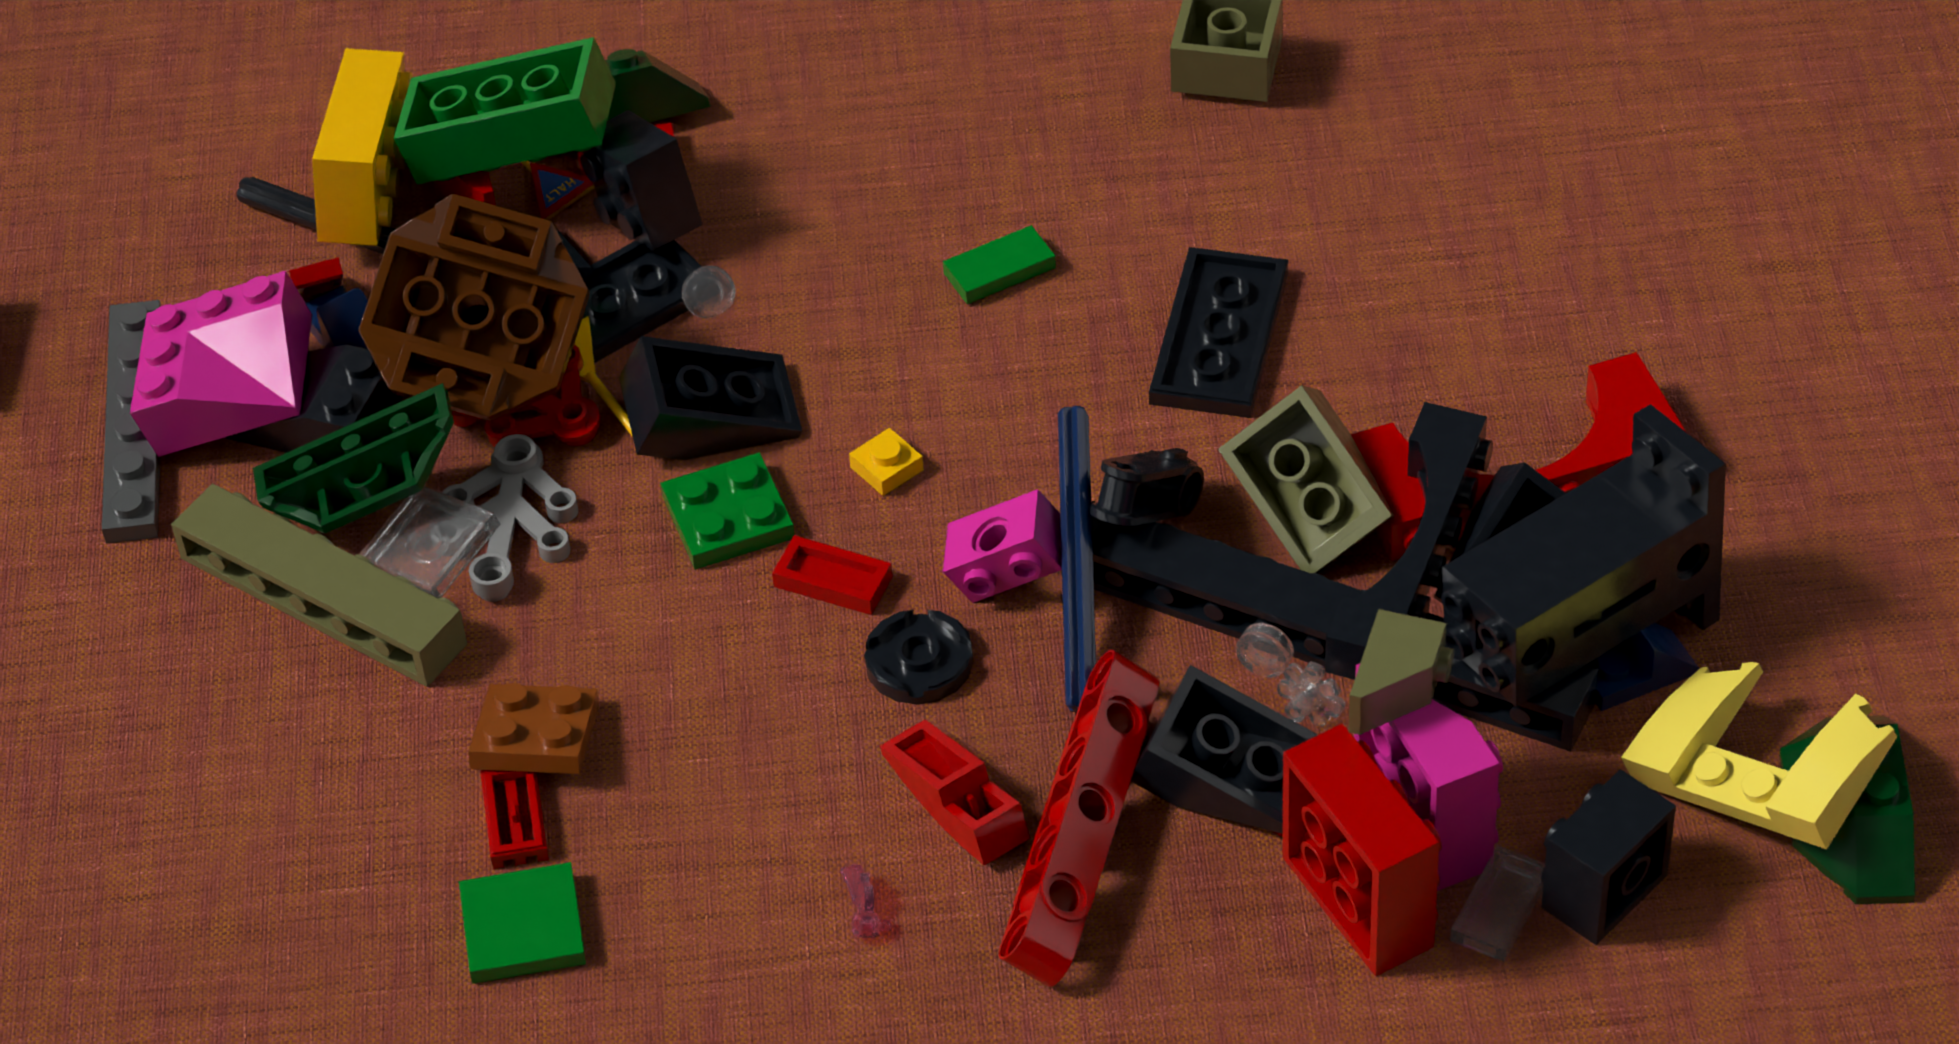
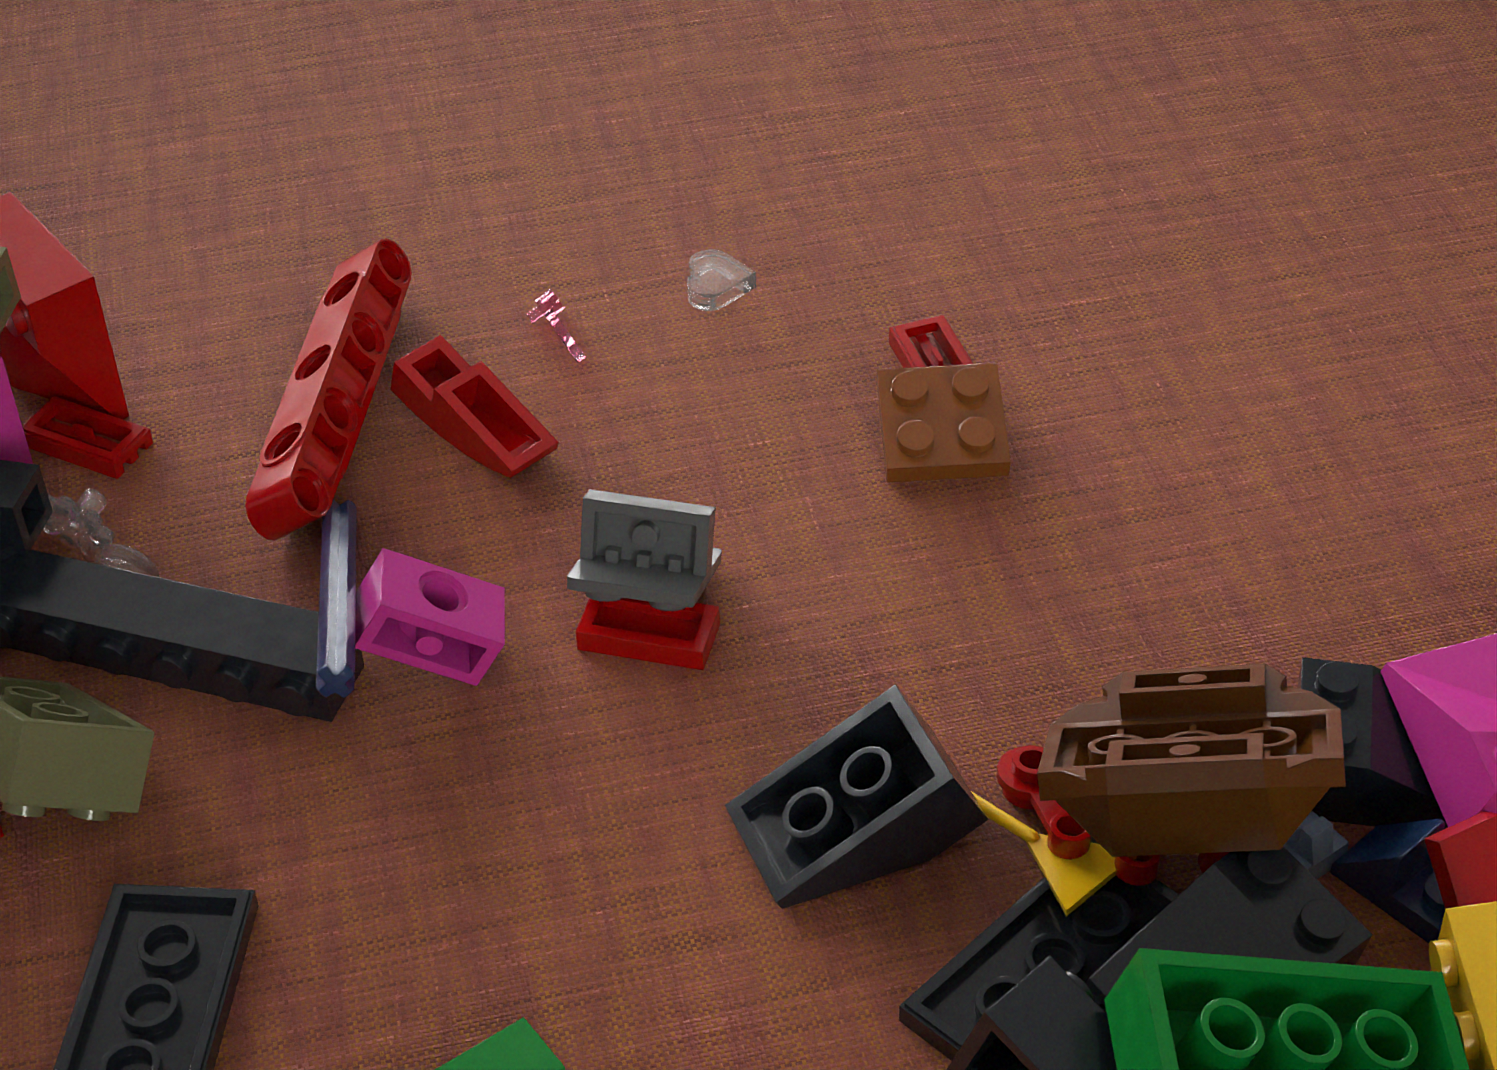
camera: 170 degrees right, 5 degrees down
(320, 584) = (1263, 535): olive brick -> none
(359, 464) = (1271, 609): dark green wedge -> none
(431, 539) = (1149, 589): clear tile -> none
(513, 463) = (1057, 579): light grey plant -> none
(521, 923) = (892, 278): green tile -> none
(695, 940) = (717, 279): none -> clear tile
(708, 292) = (905, 974): clear tile -> none
(727, 510) = (791, 688): green plate -> none
(822, 598) = (644, 550): none -> dark grey bracket
(886, 461) = (605, 772): yellow plate -> none
(918, 656) = (527, 551): black tile -> none
(1148, 487) = (250, 675): black piece -> none
(1219, 753) = (174, 451): black slope -> none

